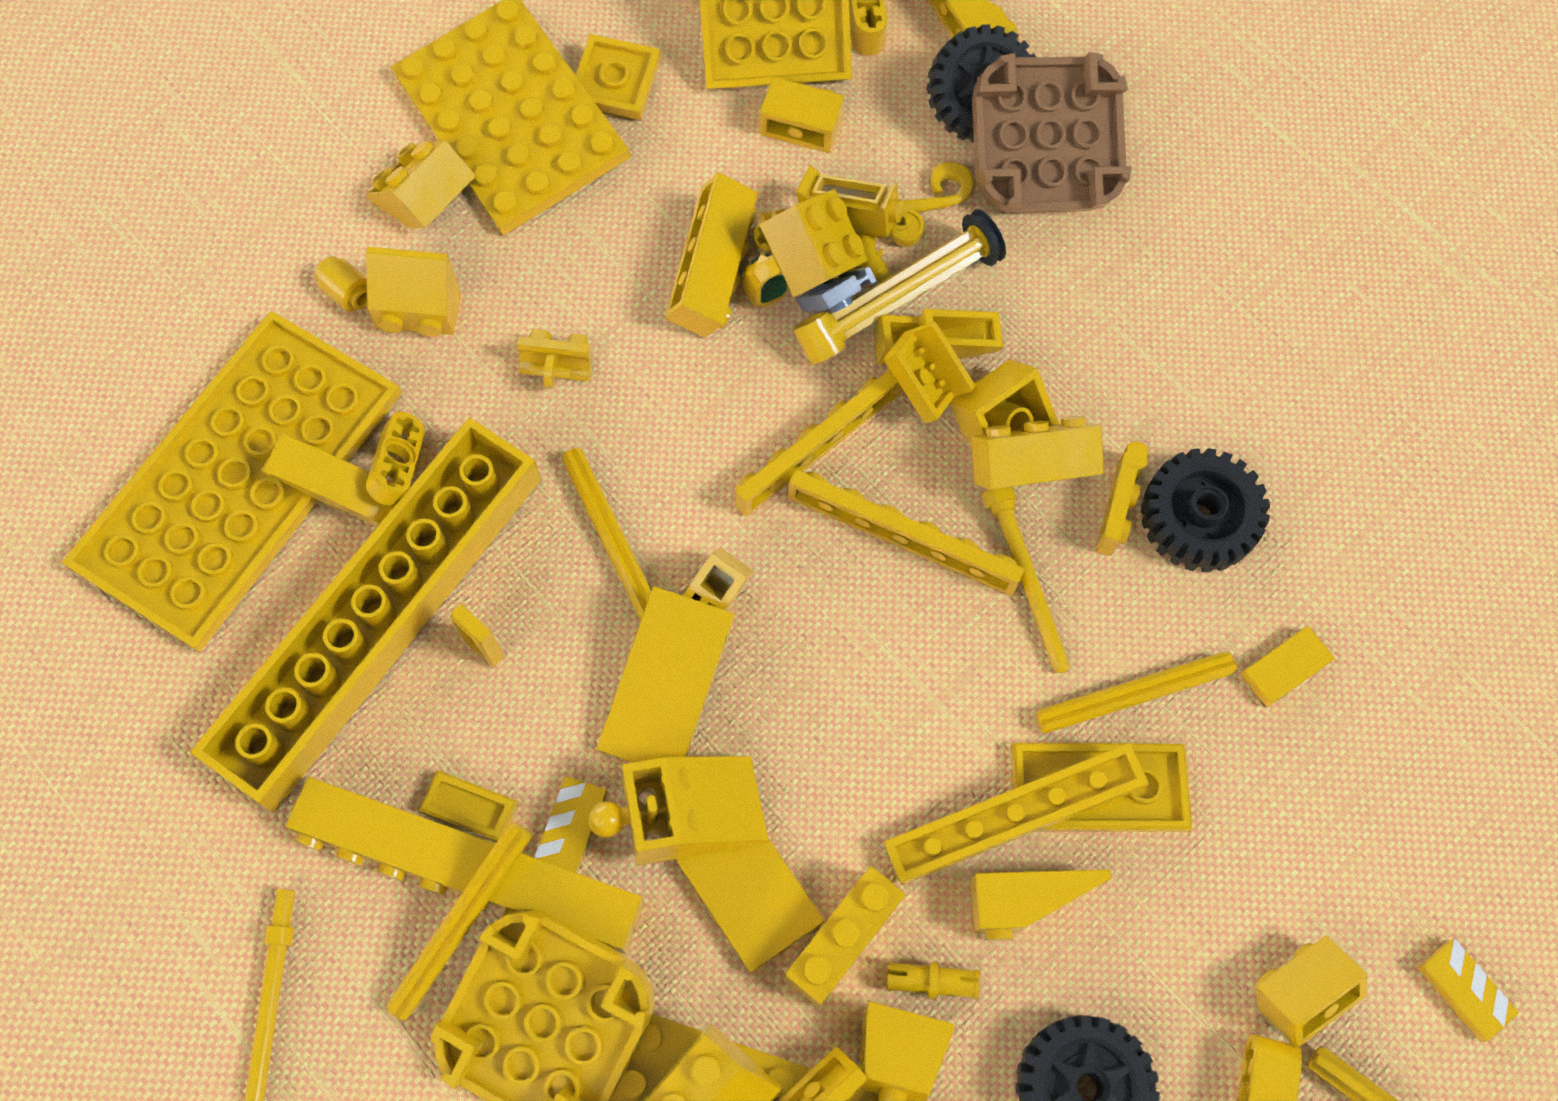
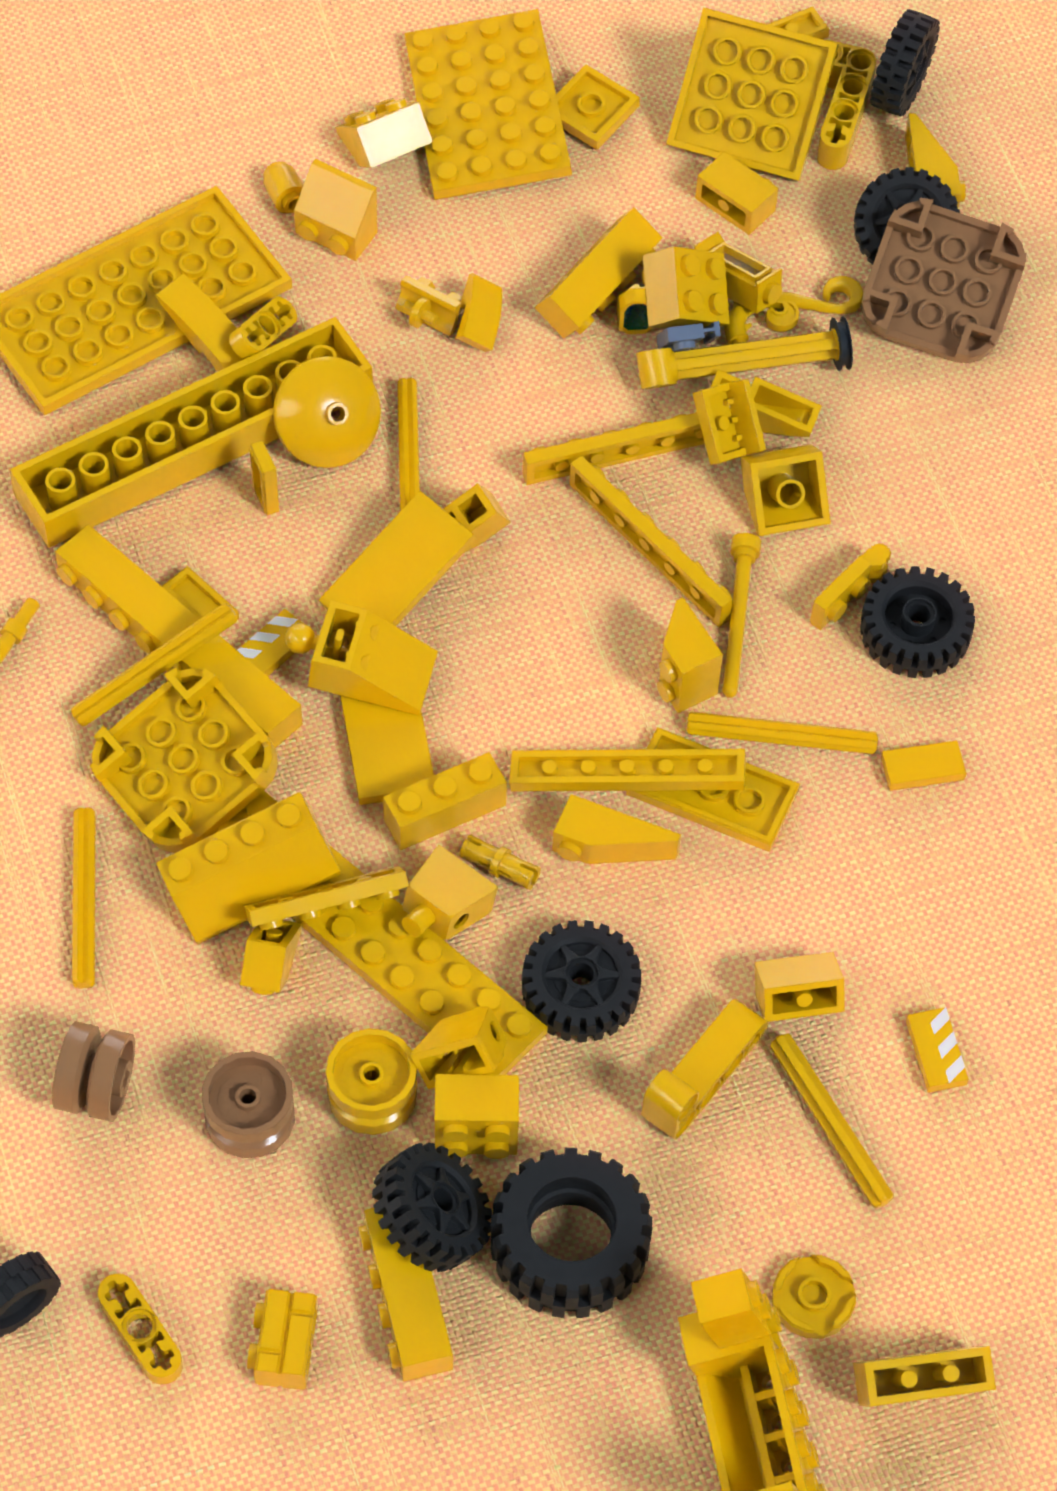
camera: 25 degrees right, 10 degrees down
(488, 524) = (305, 408): none -> yellow dish
(615, 348) = (481, 313): none -> yellow slope
(1012, 656) = (688, 661): none -> yellow slope
(1037, 453) = (791, 519): yellow brick -> none

